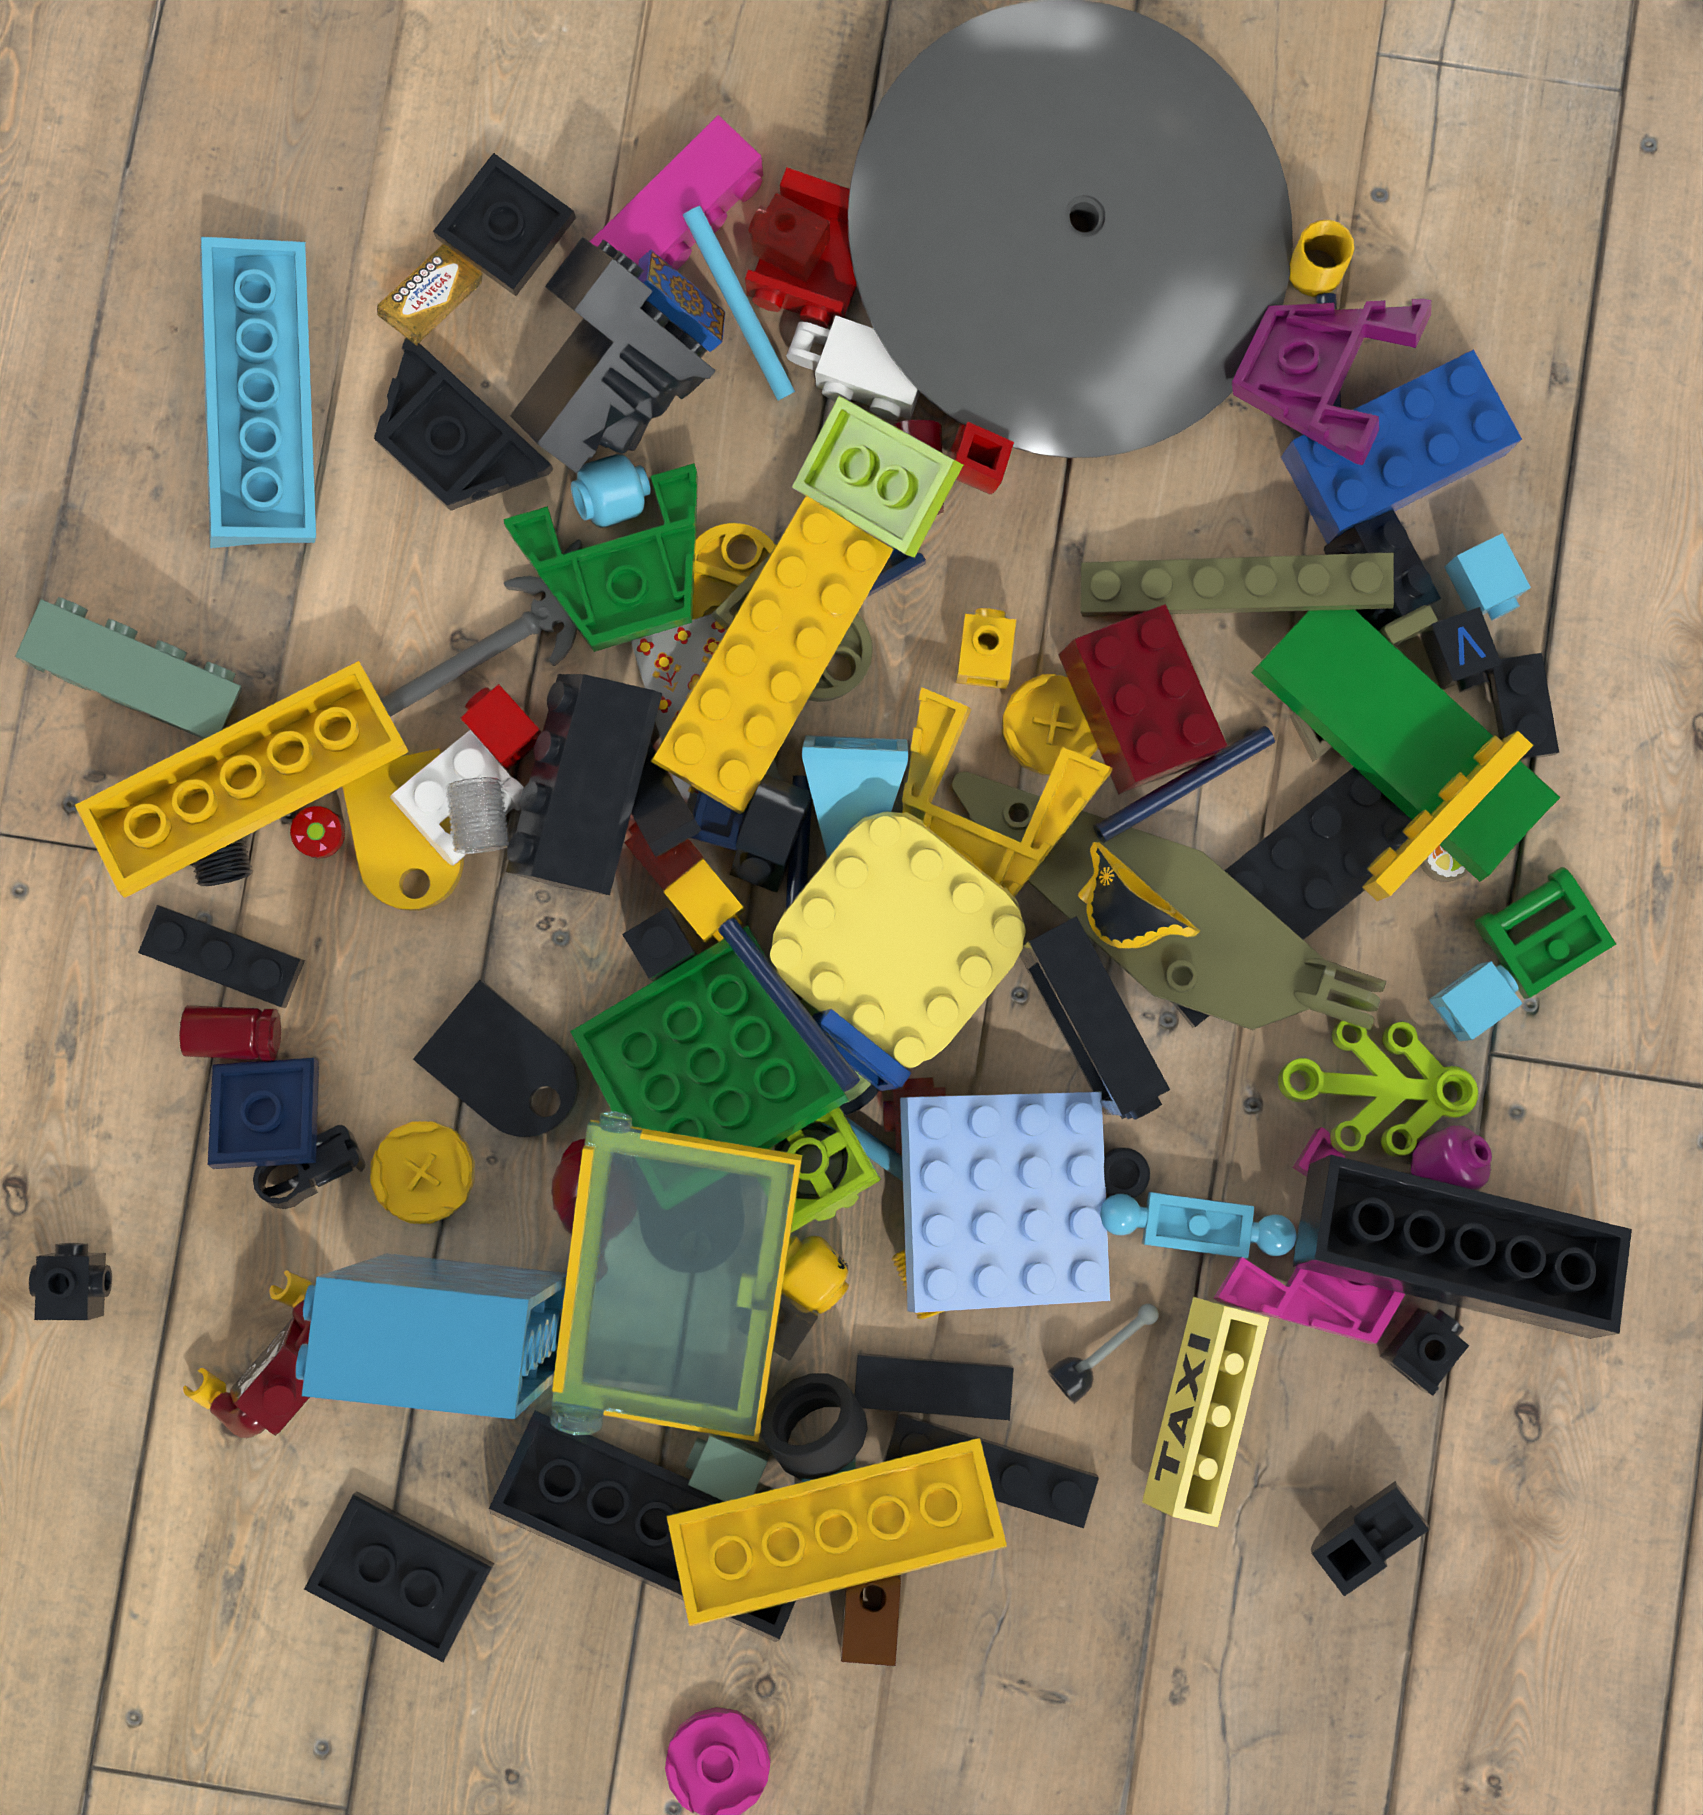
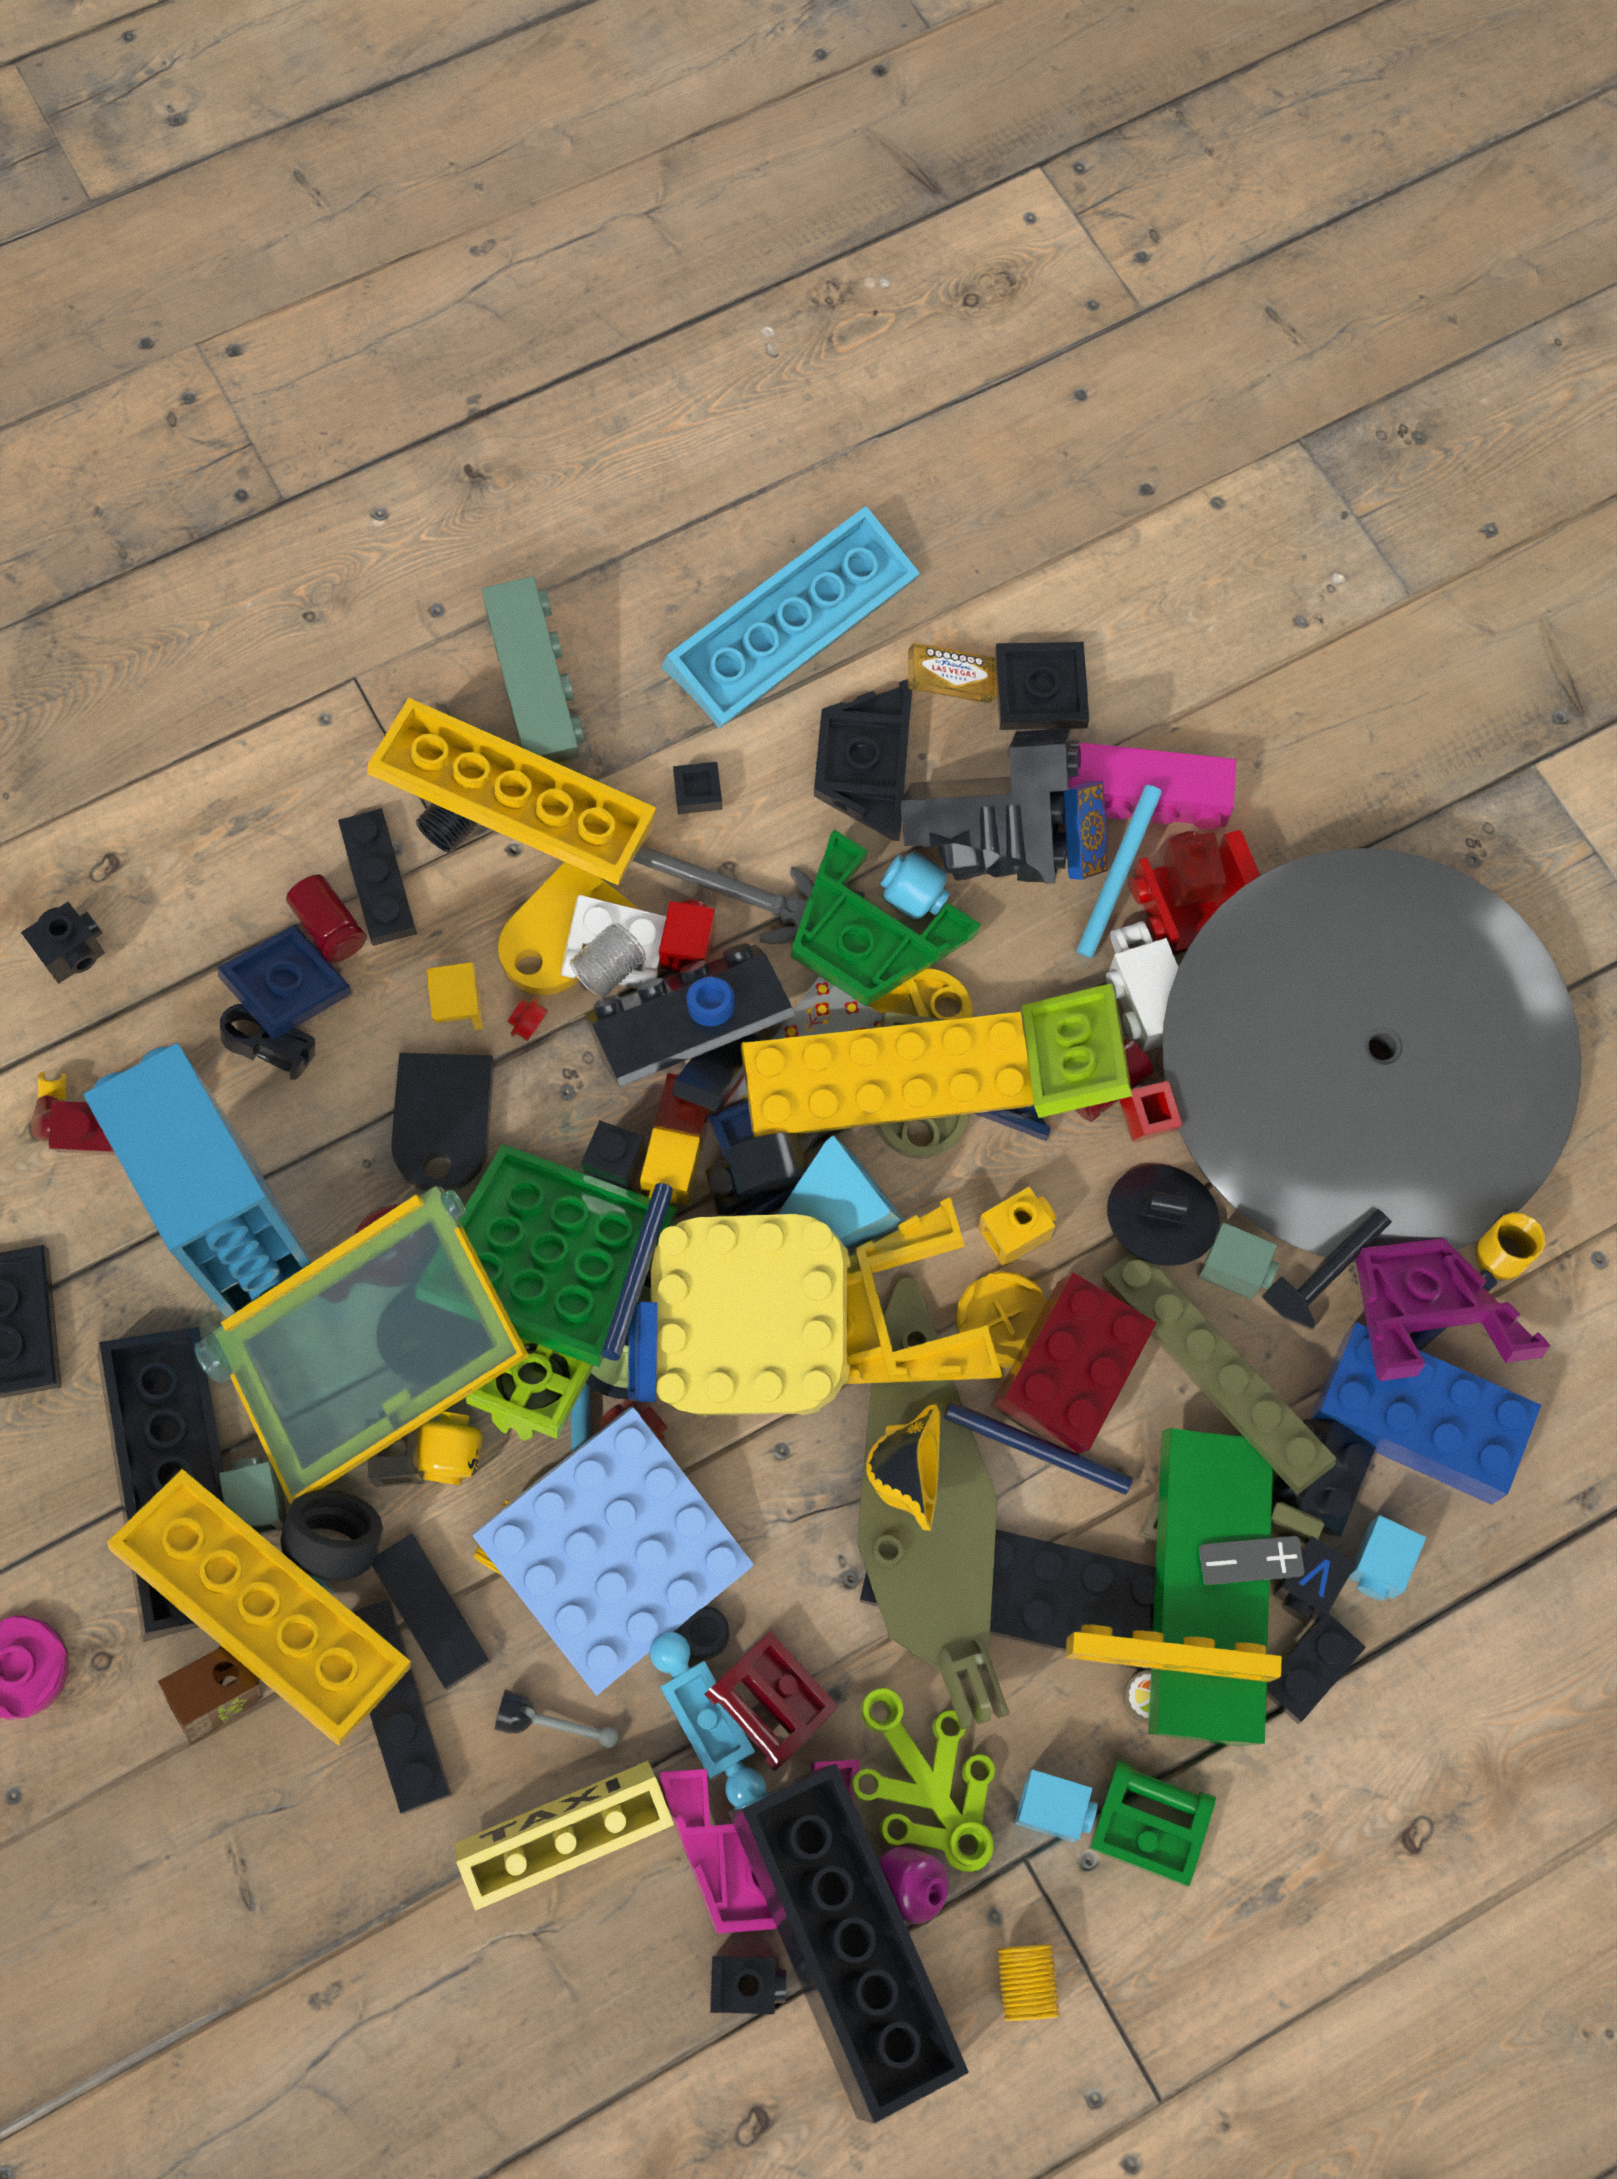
camera: 50 degrees right, 15 degrees down
(317, 832) = (515, 874): red tile -> none
(362, 607) = (697, 787): none -> black plate
(398, 972) = (455, 994): none -> yellow panel
(422, 1172) = (321, 1121): yellow tile -> none
(468, 924) = (526, 1018): none -> red plate
(593, 757) = (710, 1001): none -> blue tile
(1068, 520) = (1163, 1215): none -> black shield
(1094, 1021) = (798, 1501): black window -> none
(1159, 490) = (1240, 1262): none -> sand green brick
(1221, 1146) = (783, 1690): none -> dark red plate
(1226, 475) = (1294, 1303): none -> black piece
(1363, 1538) = (556, 2052): black brick -> none
(1413, 688) = (1251, 1560): none -> dark grey sticker
(1591, 1127) = (1028, 1982): none -> yellow piece

